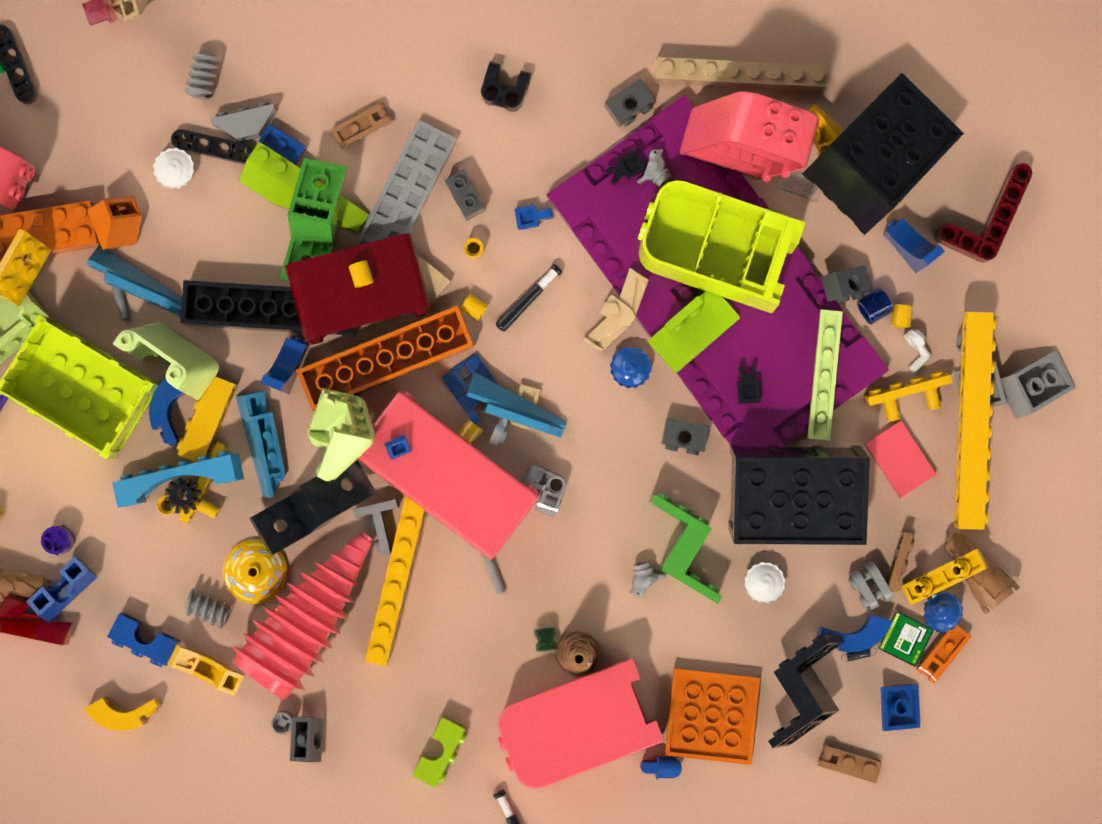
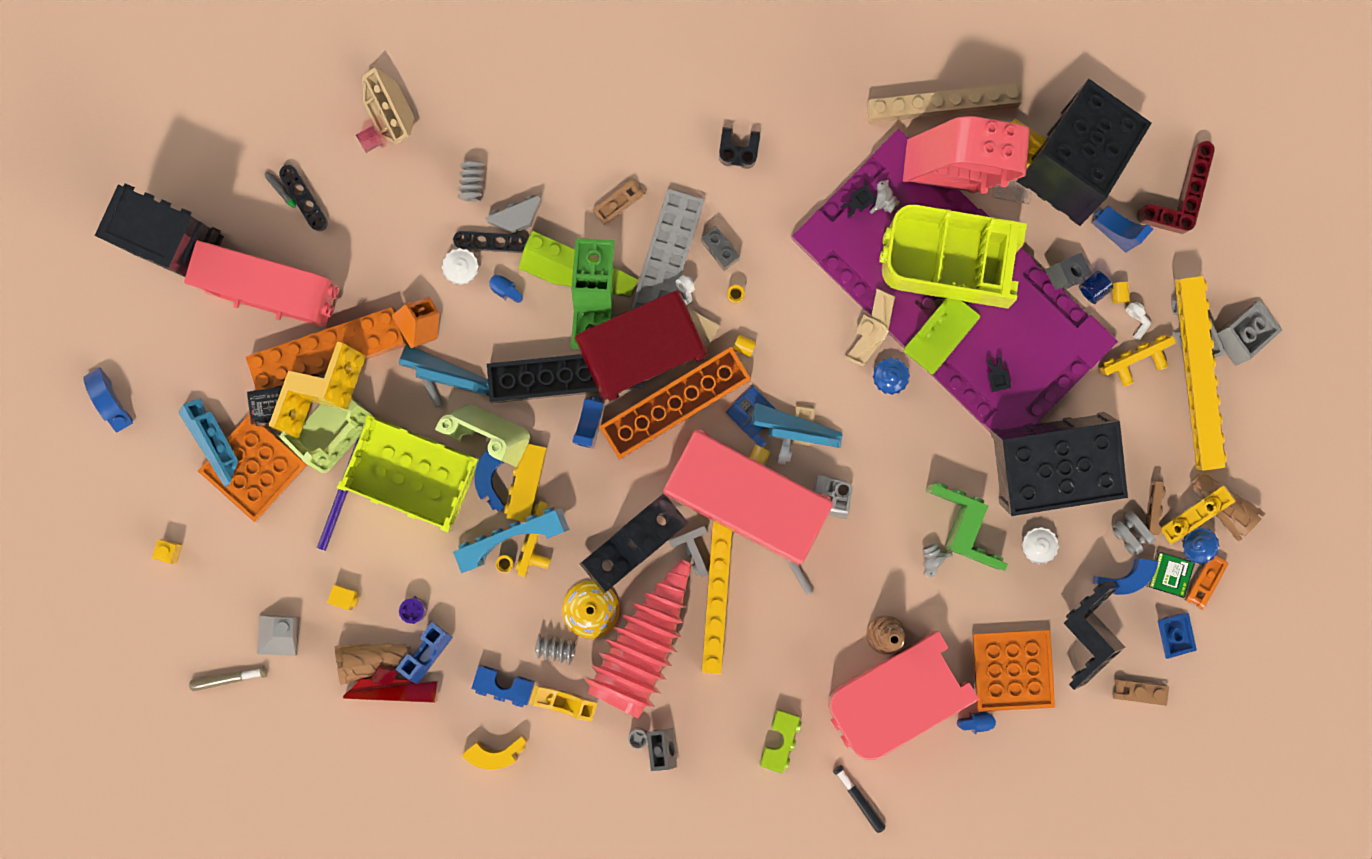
camera: 10 degrees left, 0 degrees up
(175, 495) = (511, 554): black gear -> none
(219, 200) = (505, 288): none -> blue arm
(262, 441) = (577, 493): dark azure wedge -> none
(282, 144) = (552, 229): blue plate -> none
(344, 428) = (650, 470): yellowish green windscreen -> none
(361, 274) = (643, 332): yellow beam -> none
(397, 447) = (703, 479): blue slope -> none
(420, 231) = (686, 286): none -> white plate
(526, 300) = (787, 334): black piece -> none
(529, 217) = (779, 258): blue plate -> none
(545, 639) = (856, 627): clear green wheel -> none
(636, 92) = (856, 134): dark grey brick -> none
(697, 432) = (959, 424): dark grey brick -> none
(824, 375) = (1063, 355): yellowish green plate -> none
(858, 655) = (1128, 597): dark grey piece -> none
(900, 459) = (1140, 417): coral tile -> none

